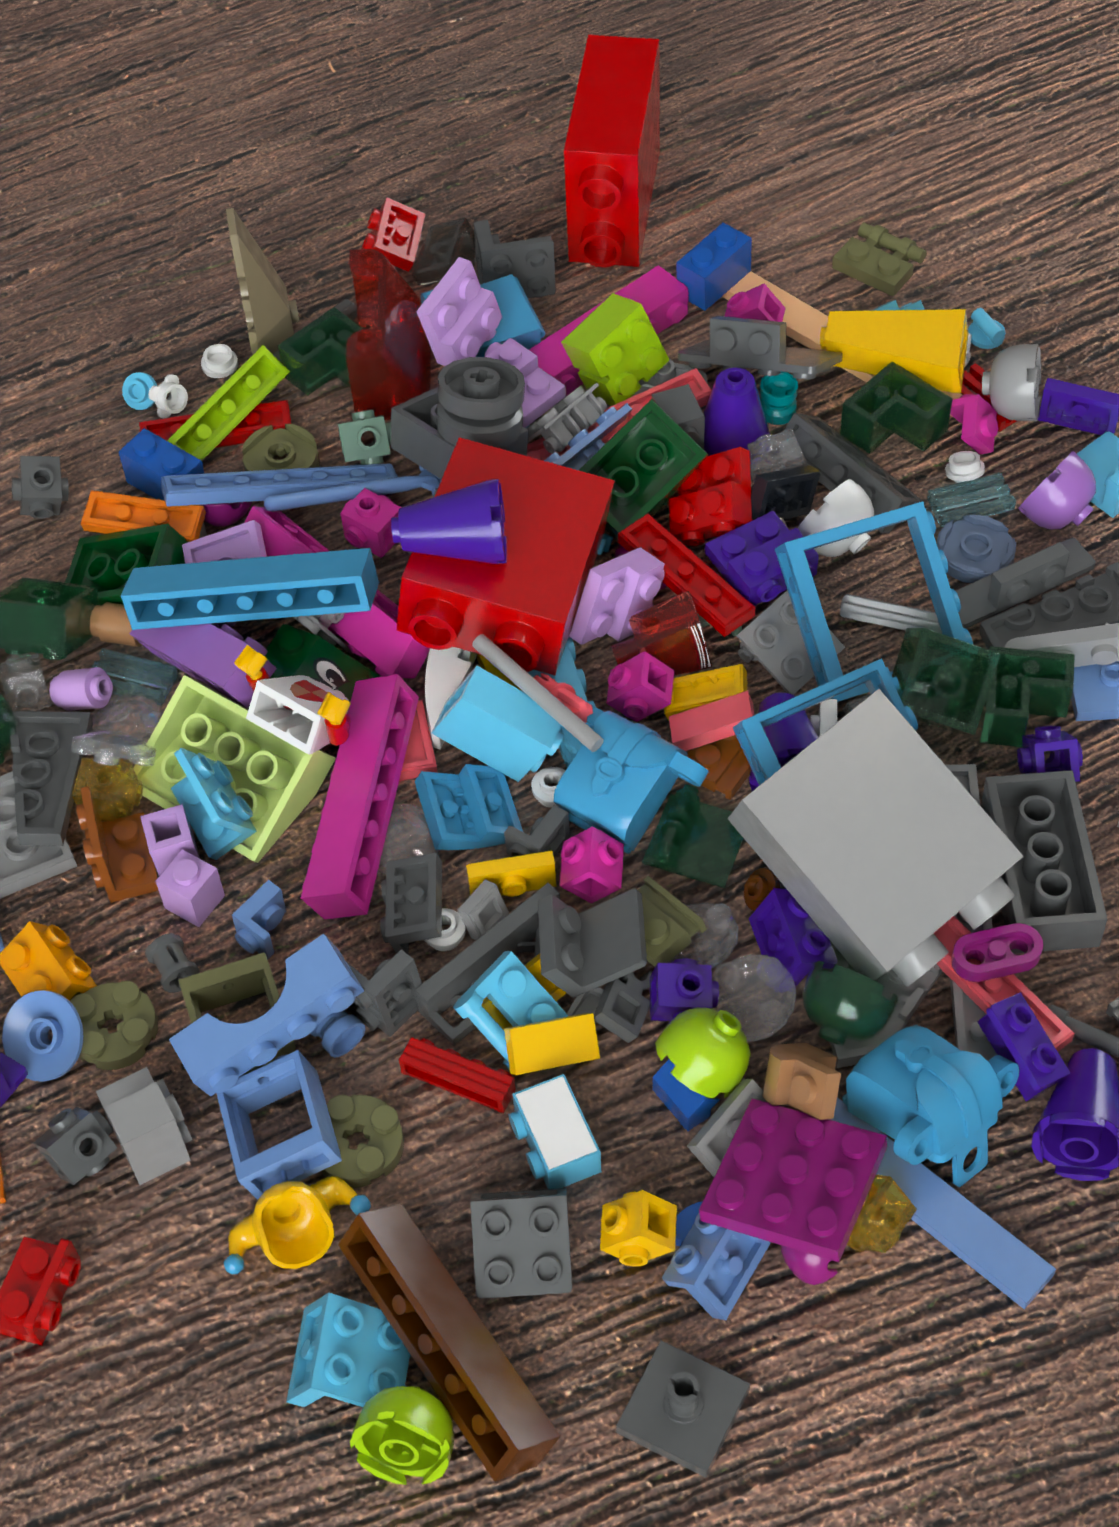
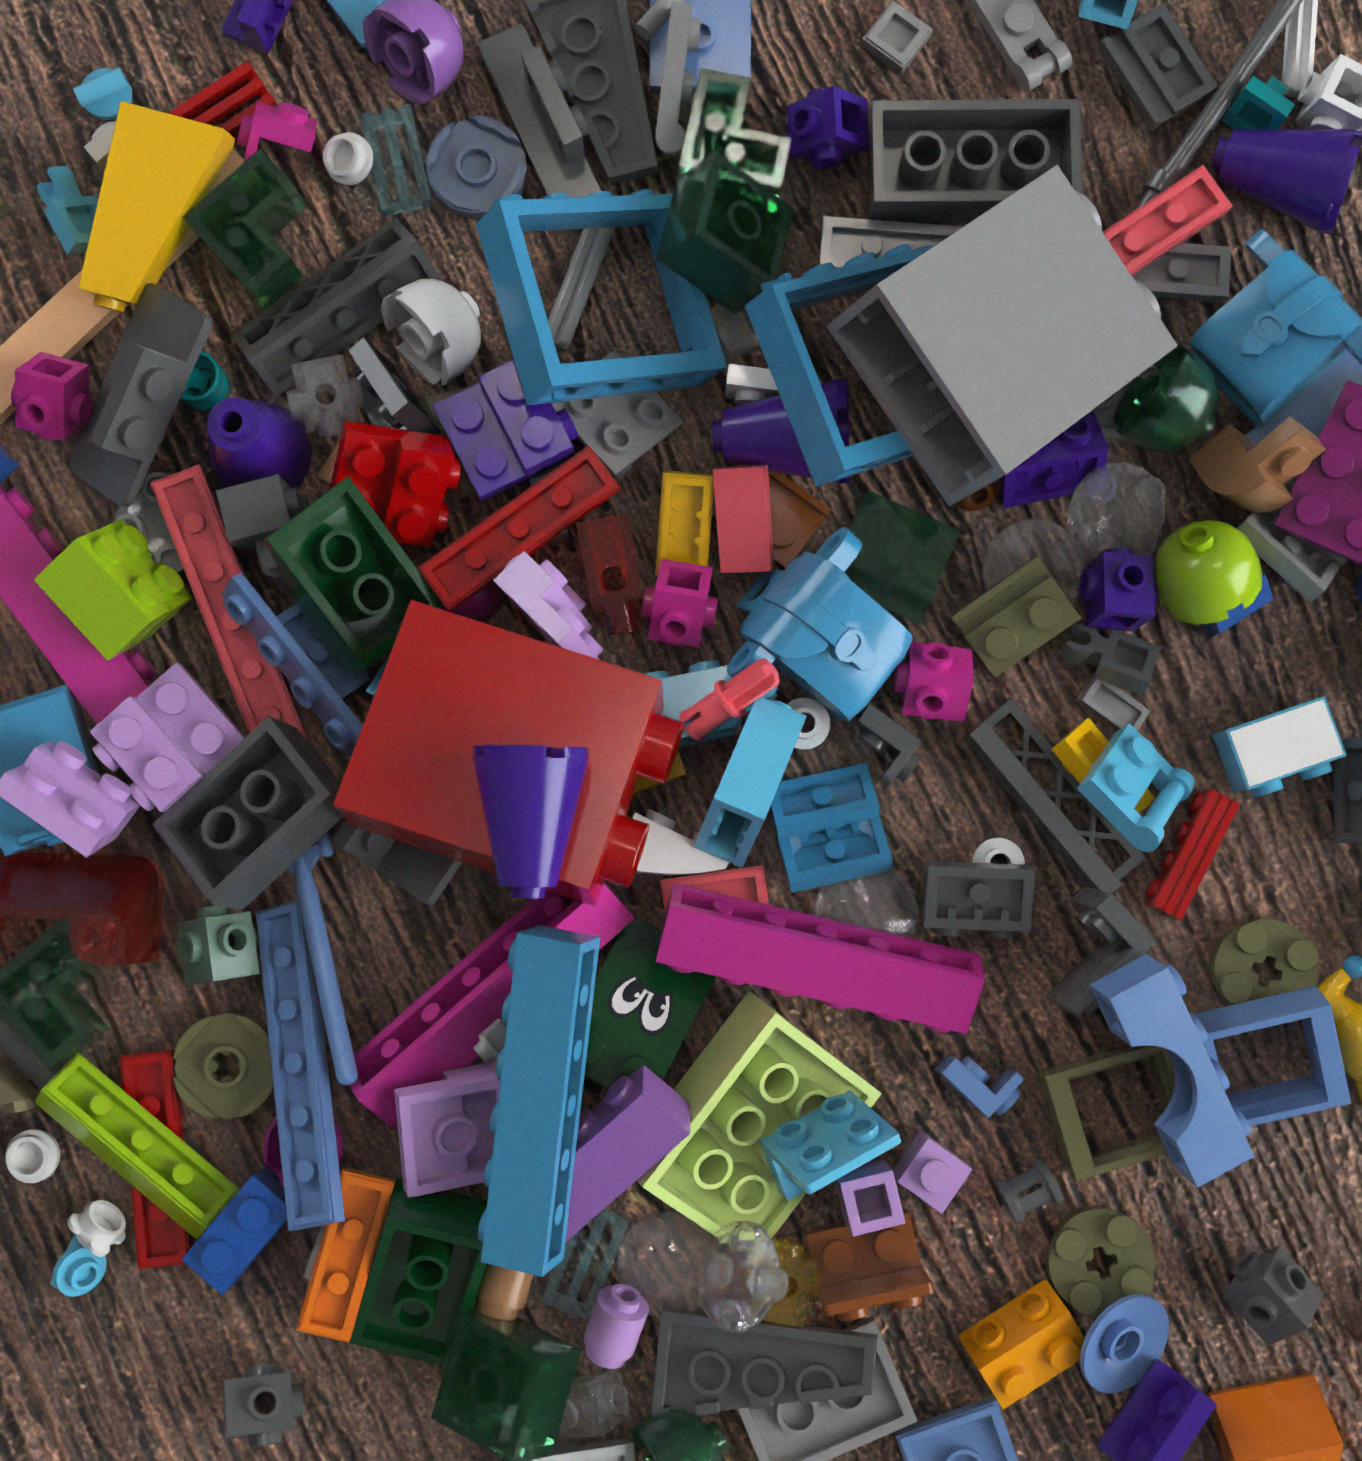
camera: 90 degrees left, 30 degrees up
(146, 1124) = (1253, 1215): light grey brick -> none
(294, 706) = (722, 1030): white torso -> none
(368, 522) = (389, 935): dark pink brick -> none
(480, 401) = (241, 775): dark grey wheel -> none
(483, 909) = (986, 814): light grey tile -> none
(515, 873) = (938, 779): yellow plate -> none
(537, 693) = (742, 725): light grey bar -> none
(551, 1043) = (1174, 743): yellow tile -> none
(568, 418) = (207, 653): light grey hinge -> none
(591, 946) = (1058, 684): dark grey bracket -> none
(994, 952) = (1124, 225): magenta plate -> none
(1015, 382) = (235, 62): light grey cylinder -> none
(1021, 1038) = (1231, 219): dark purple bracket -> none

